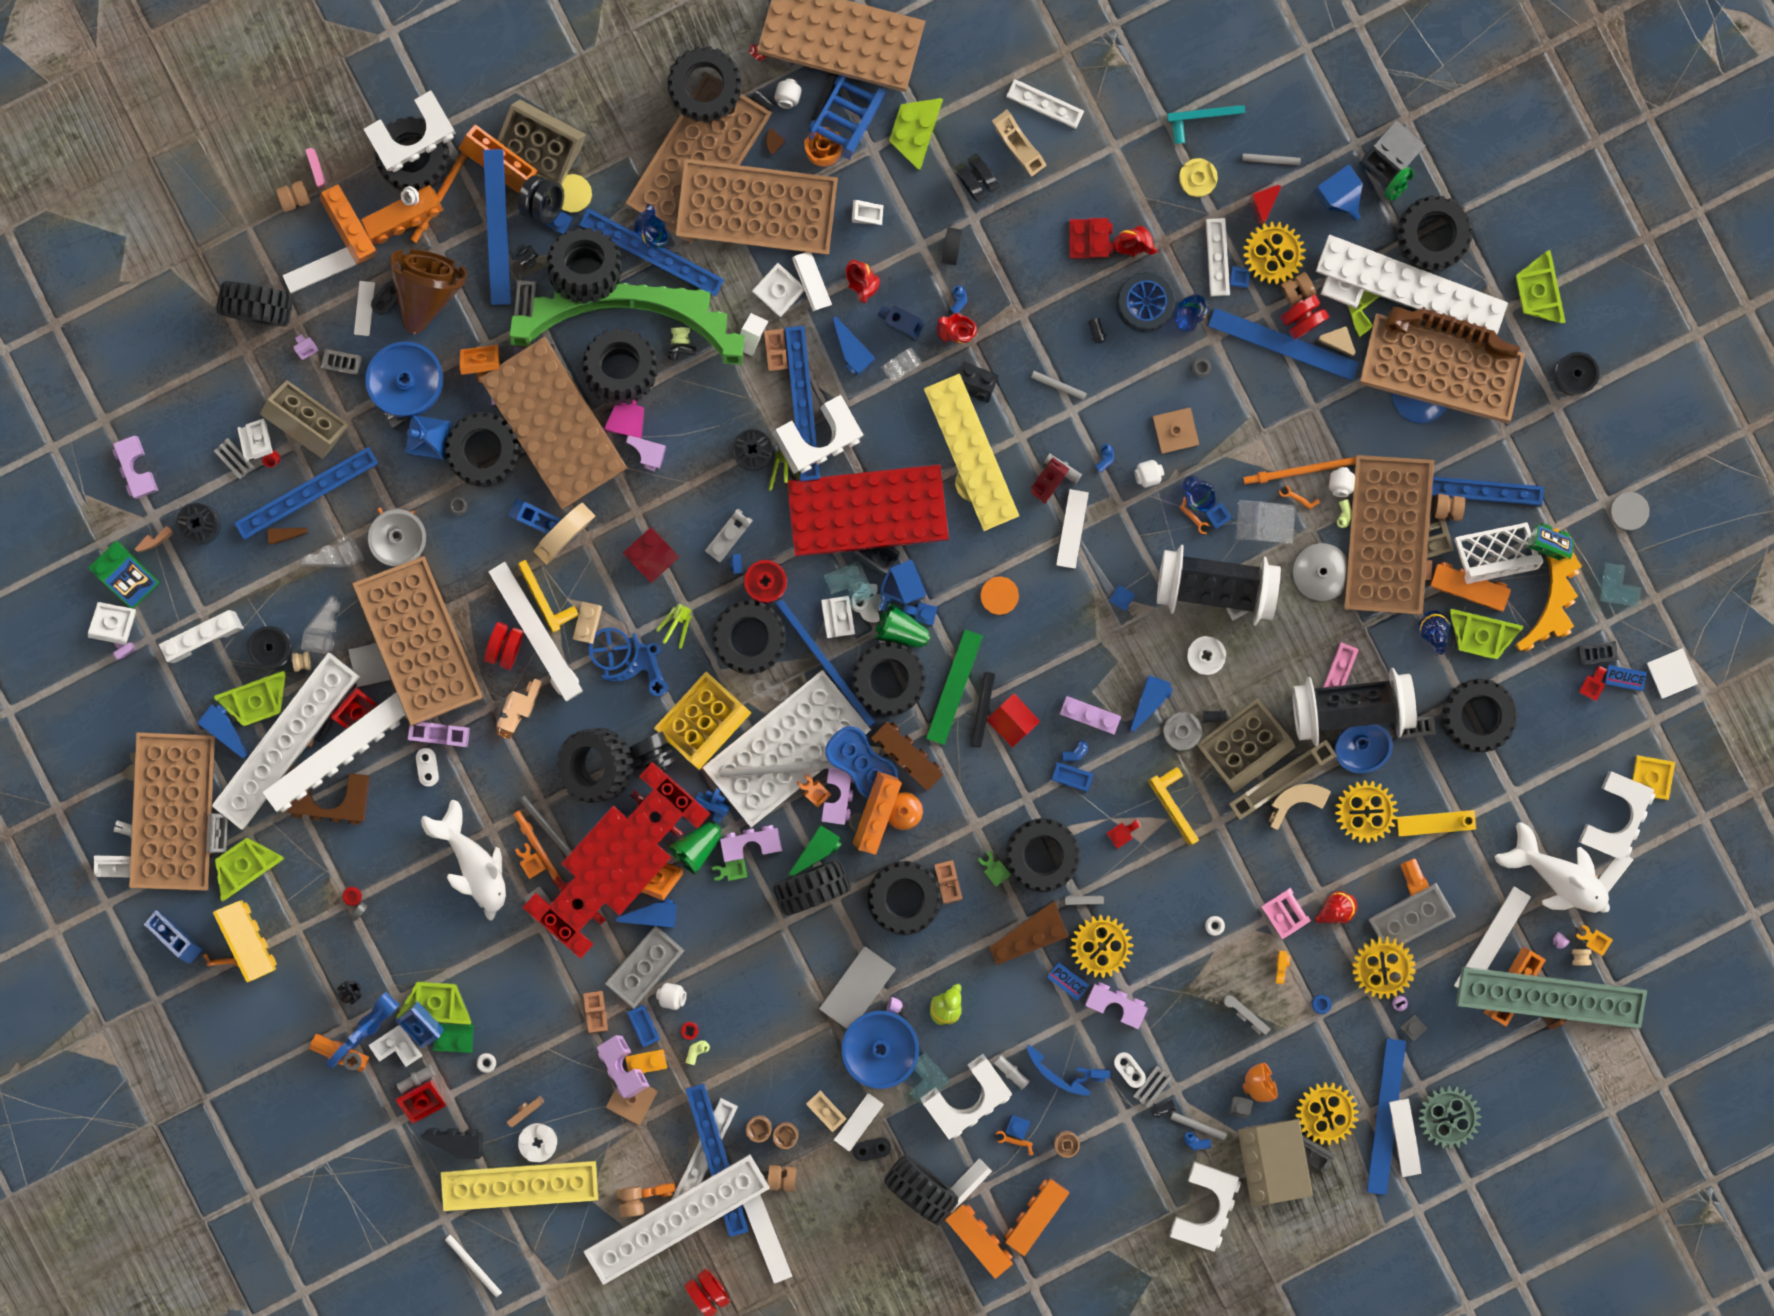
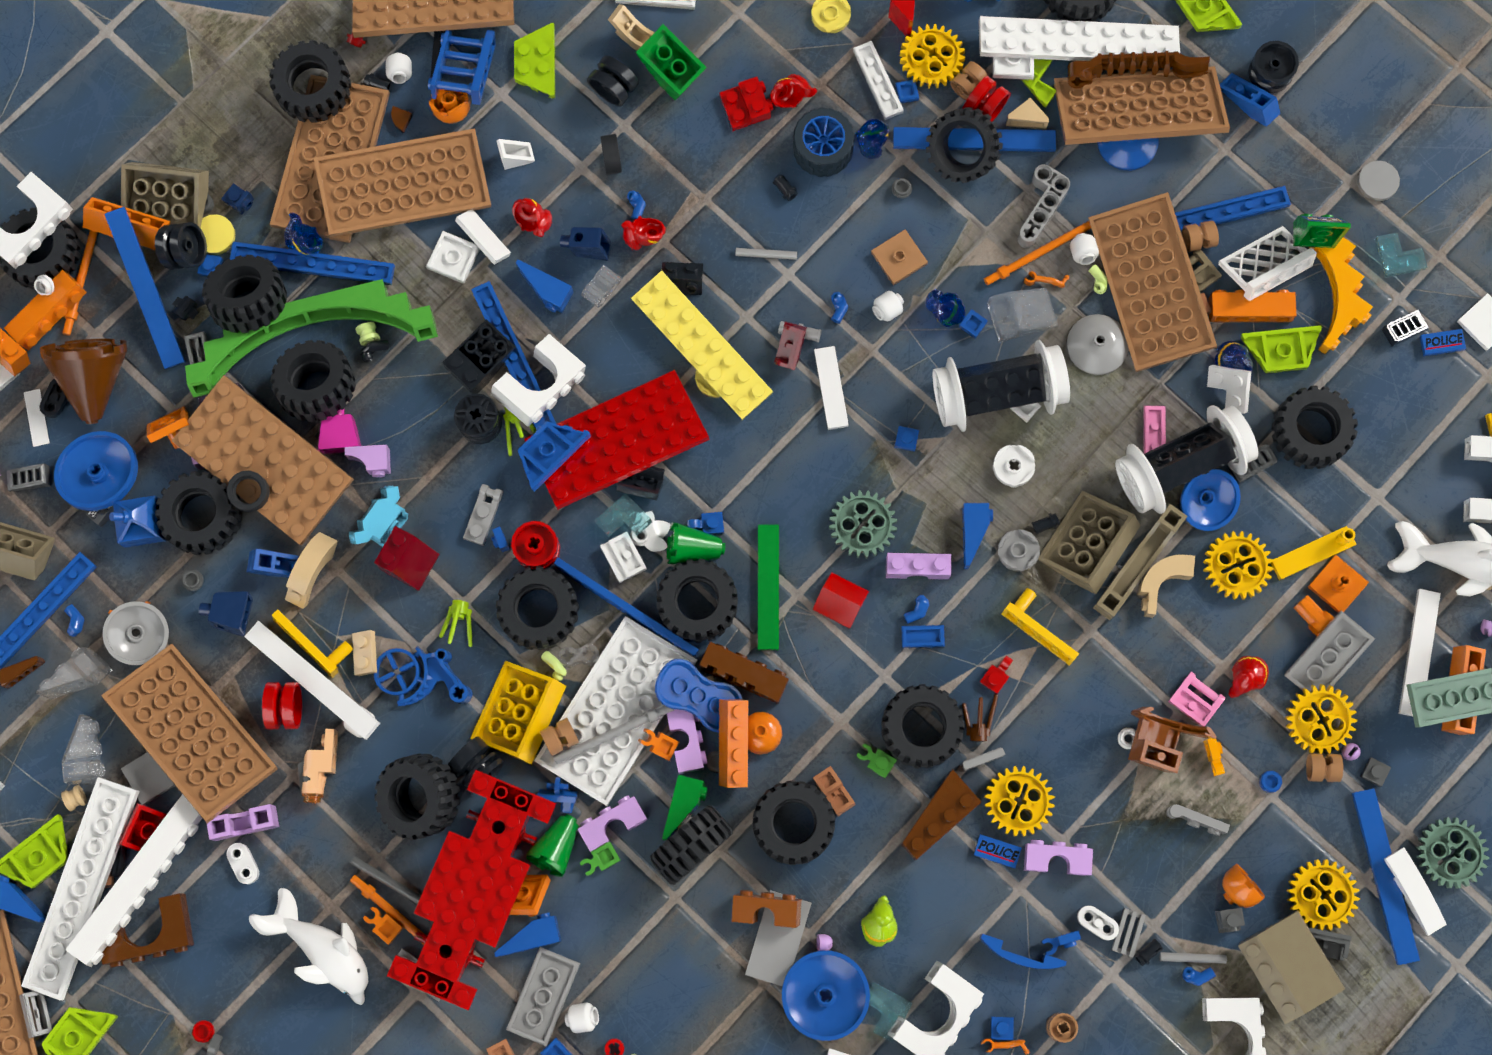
camera: 20 degrees left, 10 degrees down
(281, 650) = (22, 794): black wheel -> none
(347, 506) = (76, 621): none -> blue arm
(481, 545) = (228, 611): none -> dark blue torso
(533, 464) = (259, 503): none -> black tyre
(604, 167) = (238, 199): none -> dark blue bracket
(637, 509) = (380, 518): none -> medium azure slope
(731, 756) = (559, 736): none -> medium nougat wheel
(748, 691) = (555, 664): none -> yellowish green arm
(753, 332) = (440, 304): white slope -> none
(772, 394) = (479, 357): none -> black slope
(775, 349) = (468, 313): nougat slope -> none
(805, 502) = (549, 450): none -> blue wing
(871, 966) = (785, 908): none -> dark orange arch
(901, 585) = (678, 500): blue piece -> none
(982, 710) = (805, 600): black axle -> none
(999, 595) = (781, 479): orange tile -> none
(1011, 1072) = (973, 970): light grey pin -> none
(1034, 180) = (670, 62): none -> green slope
(1046, 646) = (848, 512): none -> sand green gear
(1089, 875) = (978, 731): none -> reddish brown plant
(1192, 516) = (944, 333): orange piece -> none
(1238, 936) = (1157, 740): none -> dark orange piece
(1251, 364) = (939, 145): none -> black tyre
(1317, 432) = (1041, 210): none -> light grey beam
(1370, 1009) = (1325, 767): none -> medium nougat wheel
(1426, 653) = (1235, 382): none -> white plate
(1446, 858) = (1338, 584): none -> orange tile
(1544, 395) = (1251, 99): none -> blue slope
(1592, 686) = (1413, 360): red plate -> none

